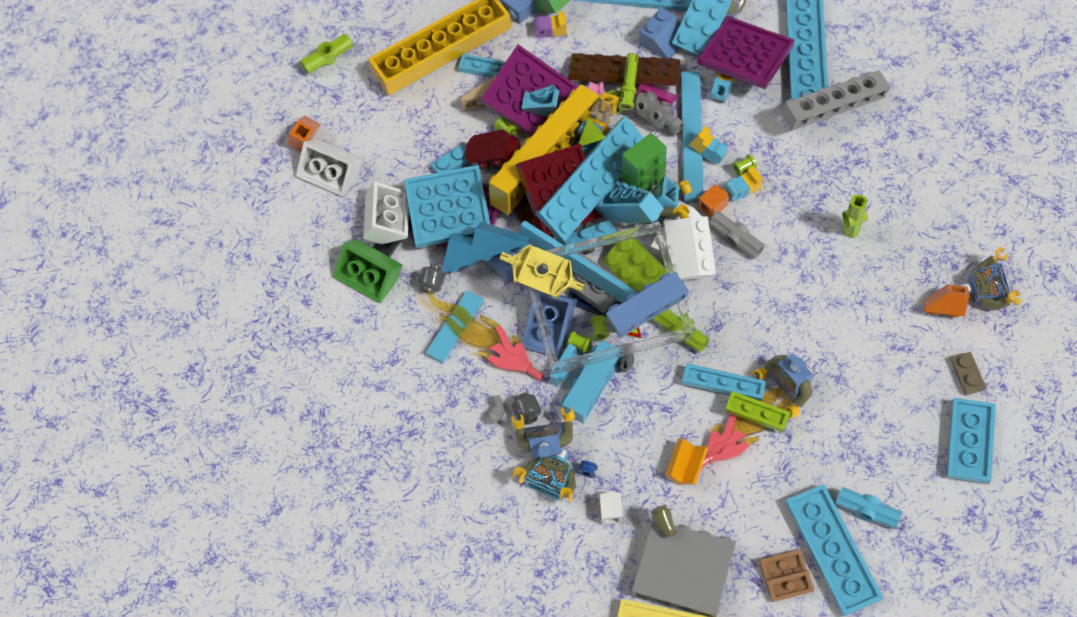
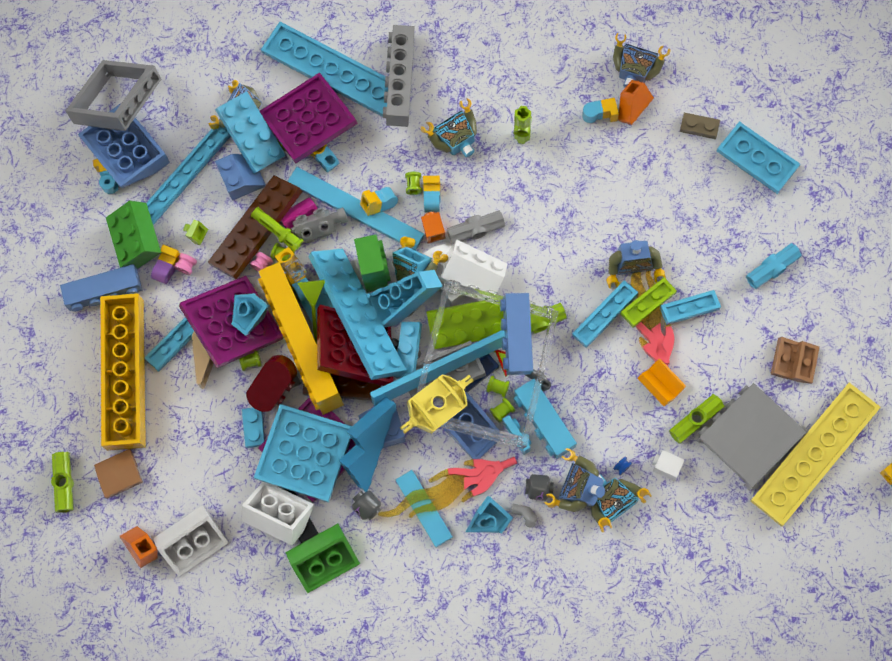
camera: 60 degrees left, 10 degrees up
(355, 87) = (118, 473): none -> medium nougat slope
(475, 381) = (489, 518): none -> medium azure slope
(560, 38) = (185, 264): none -> bright pink wheel
(592, 31) = (195, 231): none -> lime tile
(663, 519) = (706, 428): olive cone -> none
(684, 515) = (687, 426): none -> lime piece
(777, 452) = (690, 307): none -> medium azure plate
(813, 172) = (455, 133): none -> torso
(834, 550) = (793, 312): medium azure plate -> none
(921, 279) = (600, 110): none -> leg

